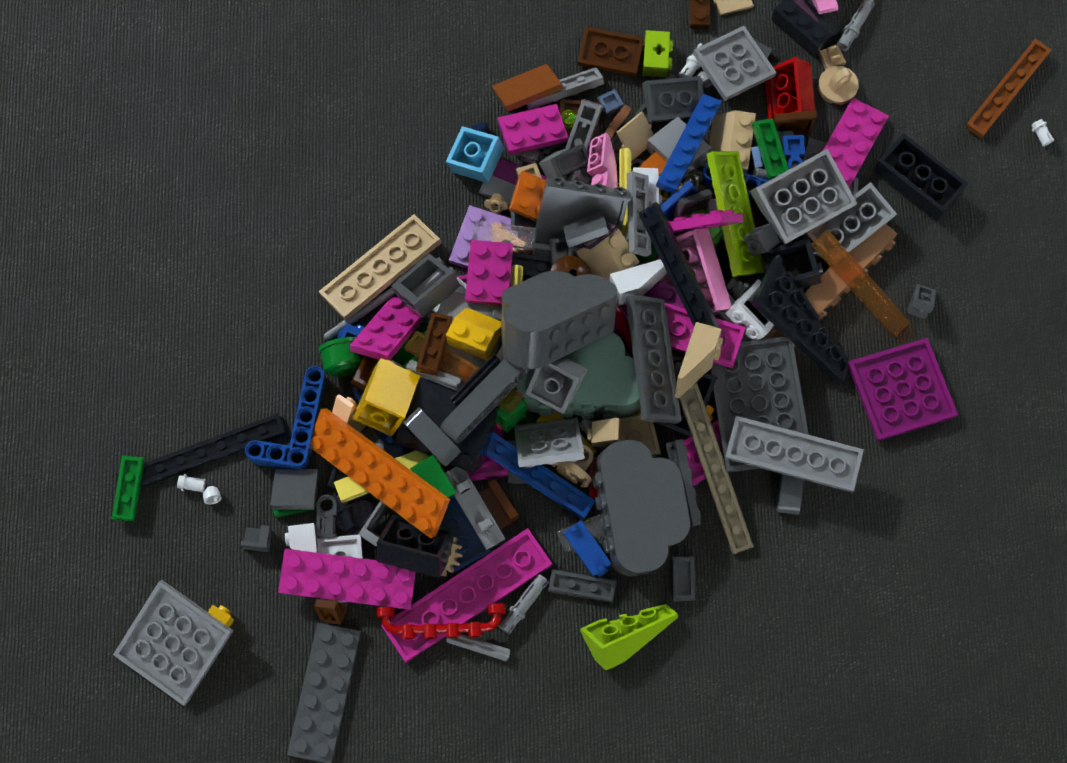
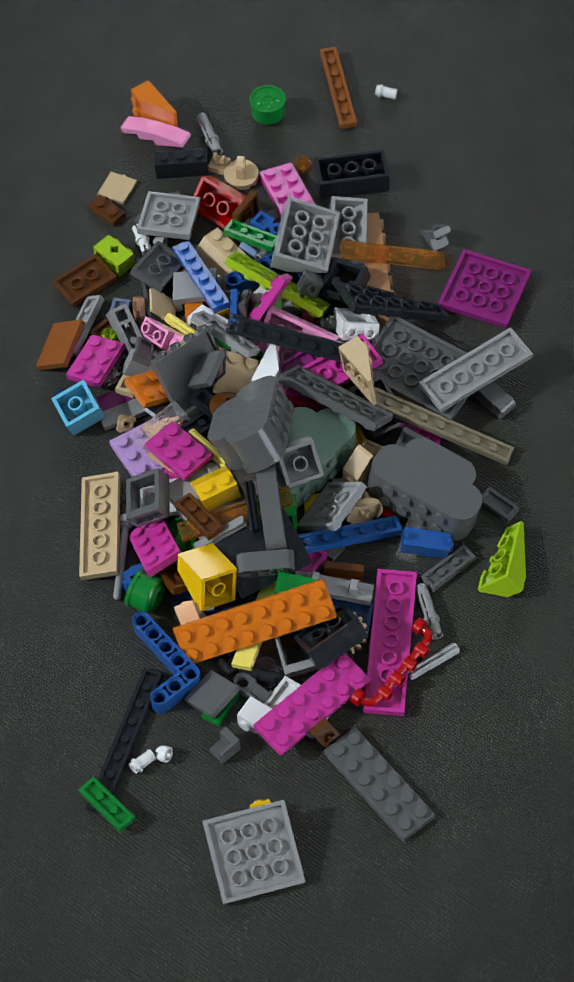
camera: 45 degrees left, 15 degrees down
(897, 130) = (302, 163): none -> clear orange plate
(929, 45) = (267, 104): none -> green wheel

